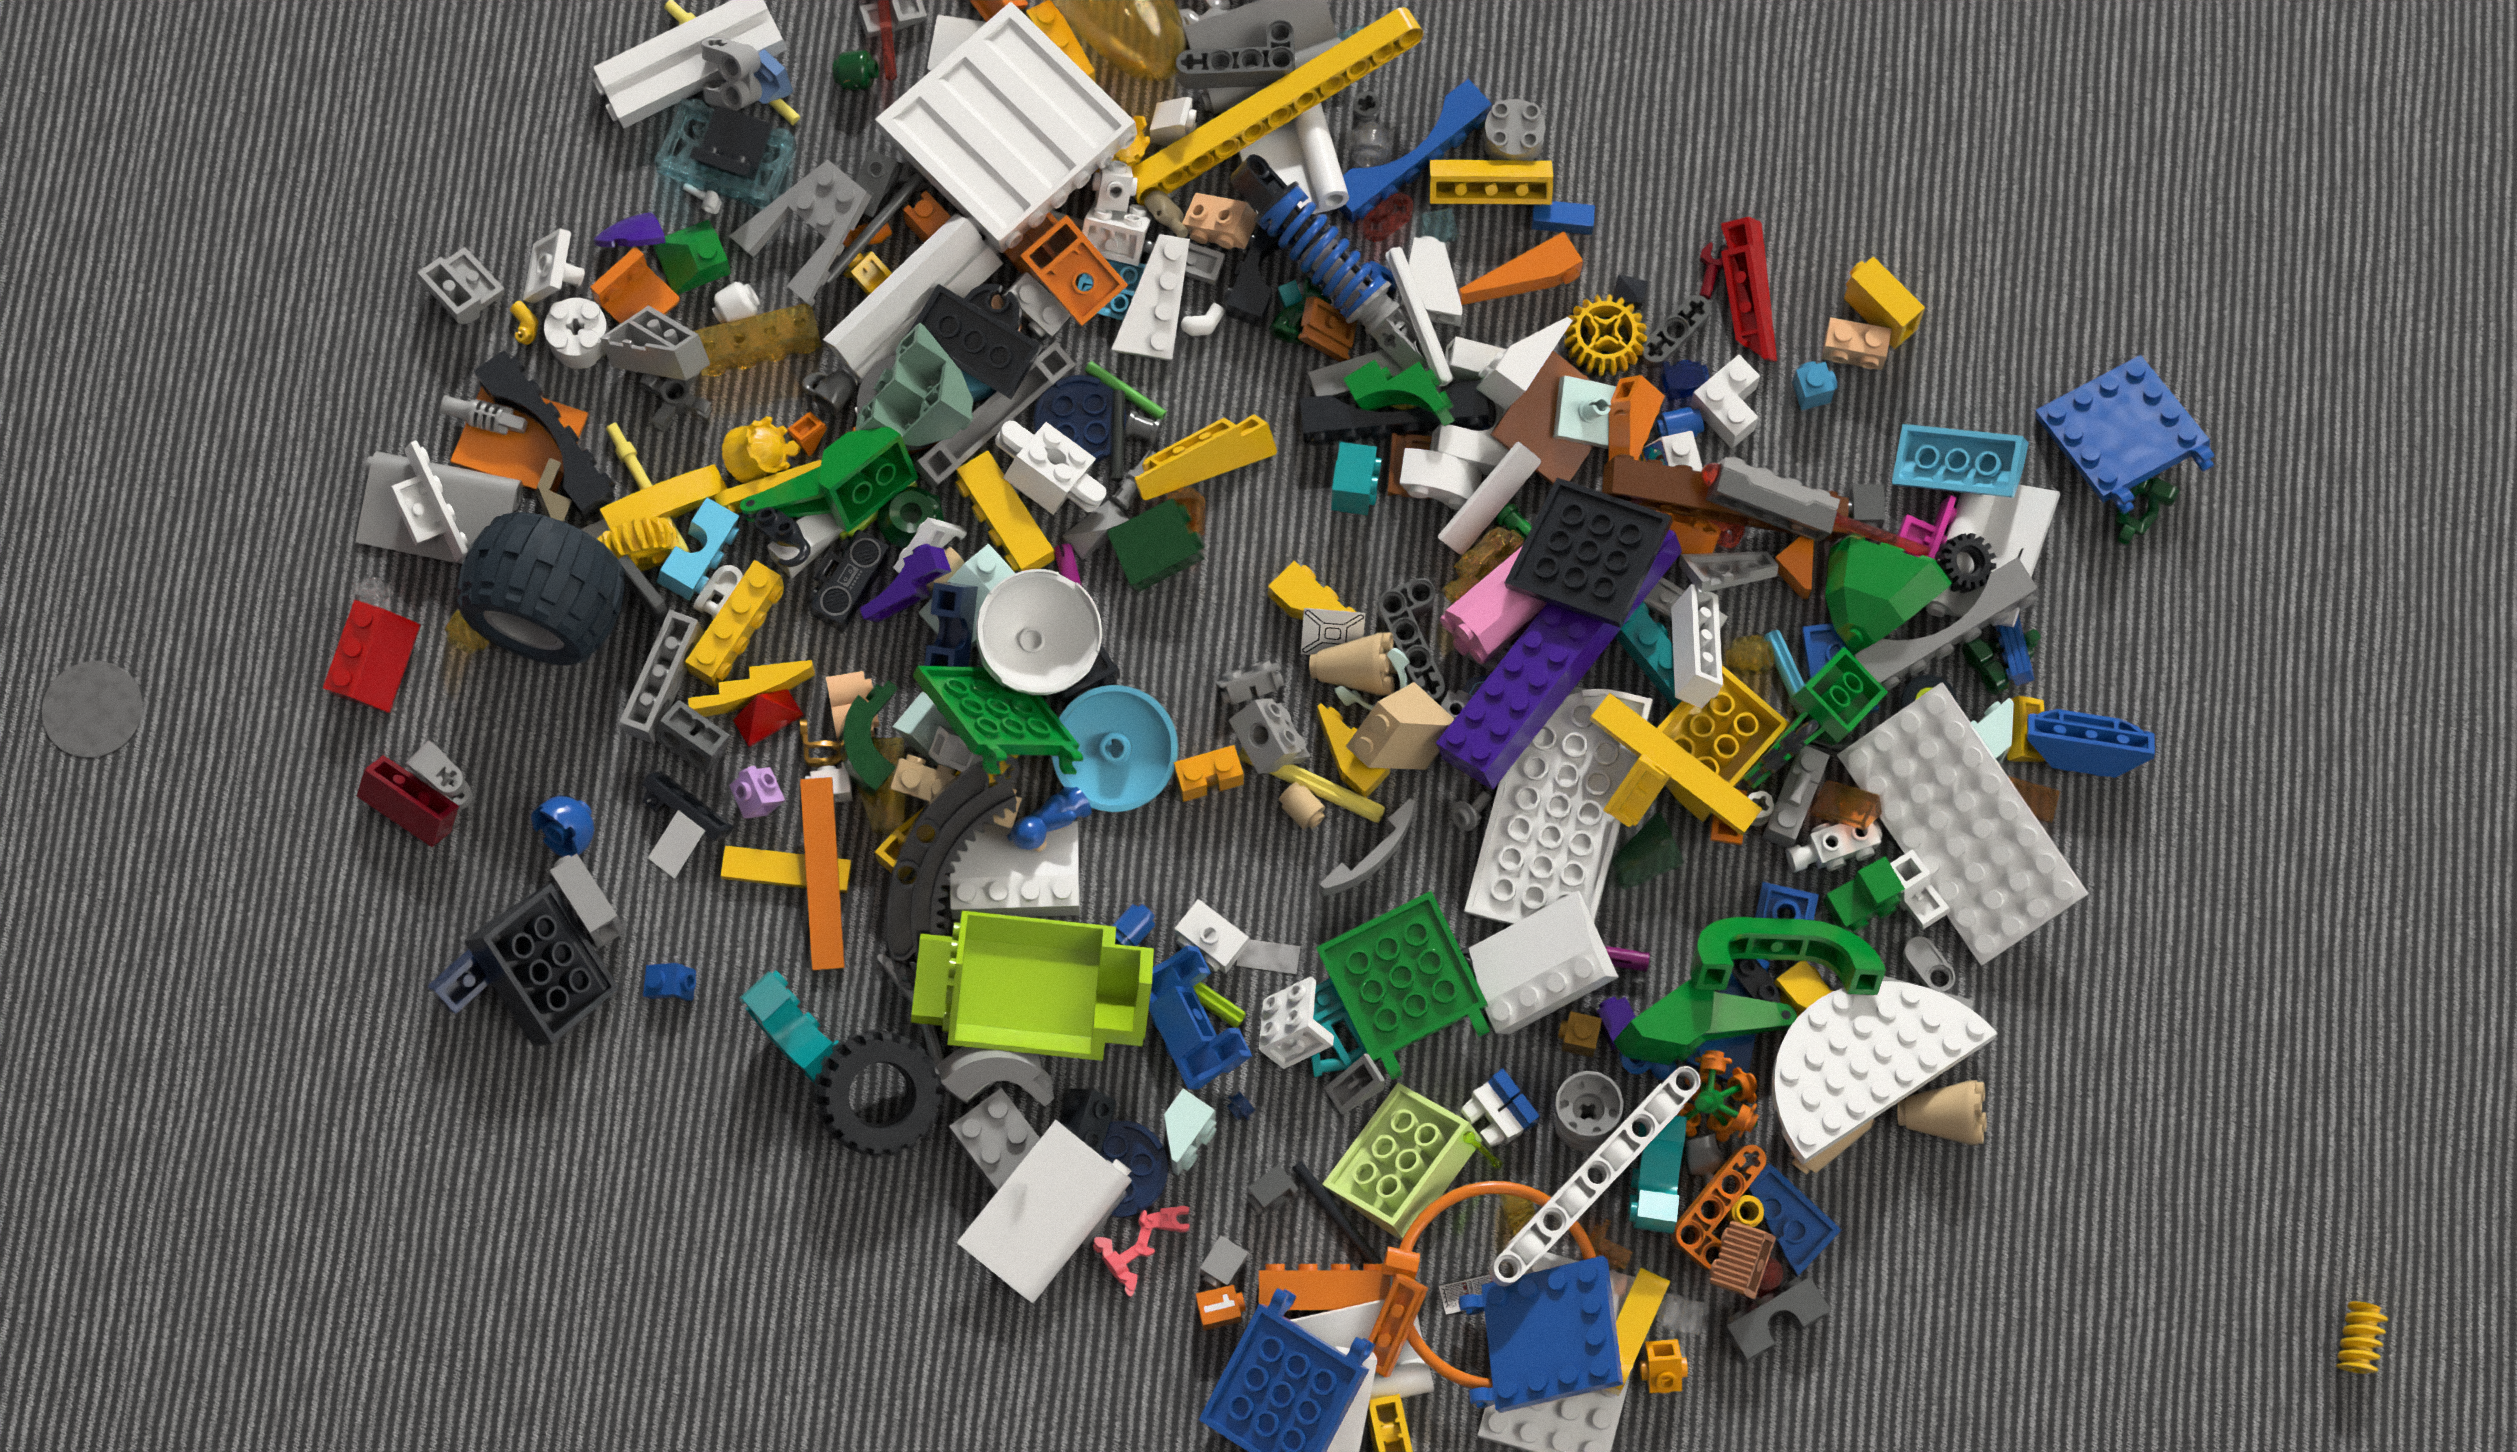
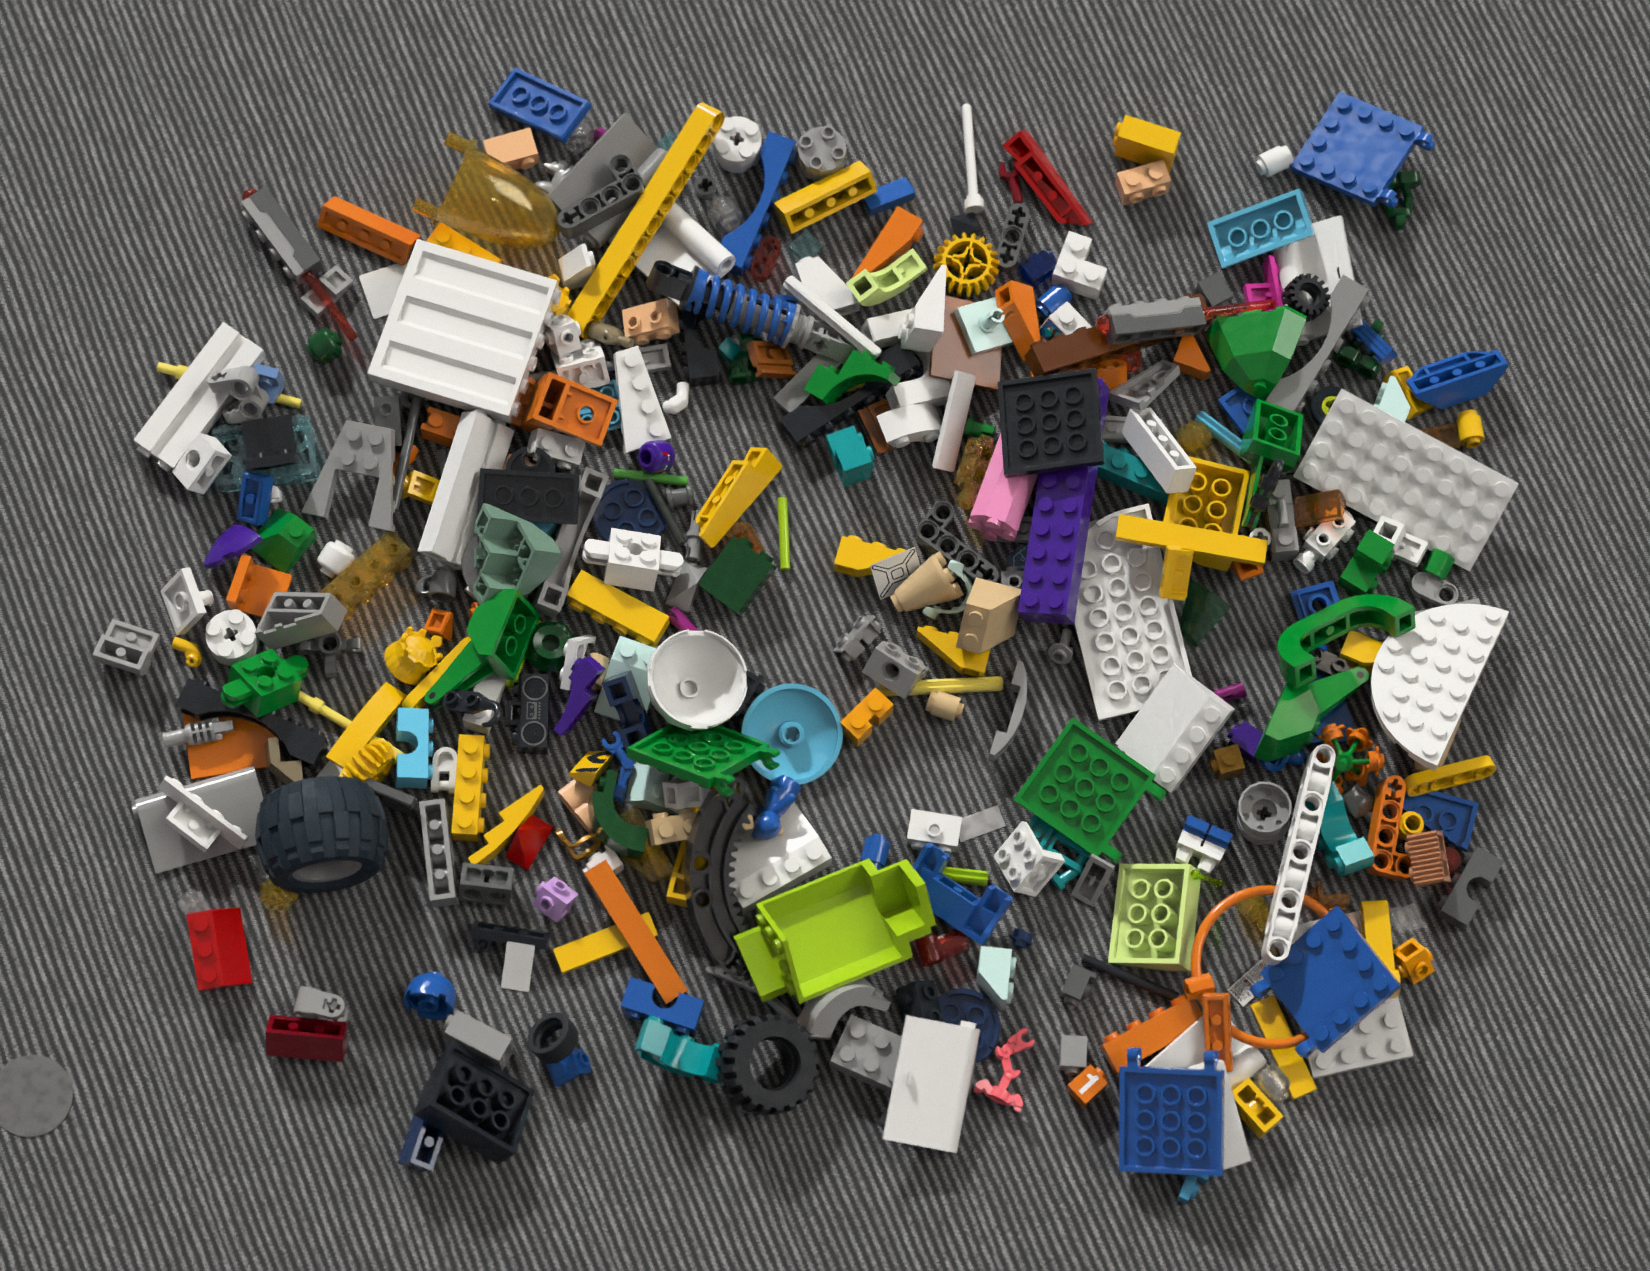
camera: 30 degrees left, 0 degrees up
(580, 396) = (264, 682): none -> green brick
(650, 129) = (201, 463): none -> white brick
(670, 954) = (562, 1047): none -> black tyre
(687, 195) = (255, 498): none -> blue slope
(823, 991) = (682, 1016): none -> blue arch
(877, 670) = (591, 767): none -> yellow slope
(893, 710) = (617, 750): none -> blue piece
(1139, 1067) = (935, 948): none -> clear red piece
(1142, 370) = (656, 456): none -> dark purple head
(1235, 527) = (783, 534): none -> lime bar
(1425, 1416) = (1272, 1083): none -> clear head
(1439, 73) = (747, 136): none -> white brick
(1466, 1356) = (1274, 1026): none -> yellow tile
(1498, 310) = (884, 284): none -> yellowish green arch
(1654, 270) = (973, 200): none -> white piece
(1814, 384) = (1130, 226): dark azure brick -> none
(1824, 1181) = (1449, 775): none -> yellow beam
(1947, 1112) = (1505, 684): tan cone -> none
(1950, 940) = (1438, 564): none -> green brick
(2020, 394) = (1274, 161): none -> white brick
(2073, 806) = (1470, 428): none -> yellow brick

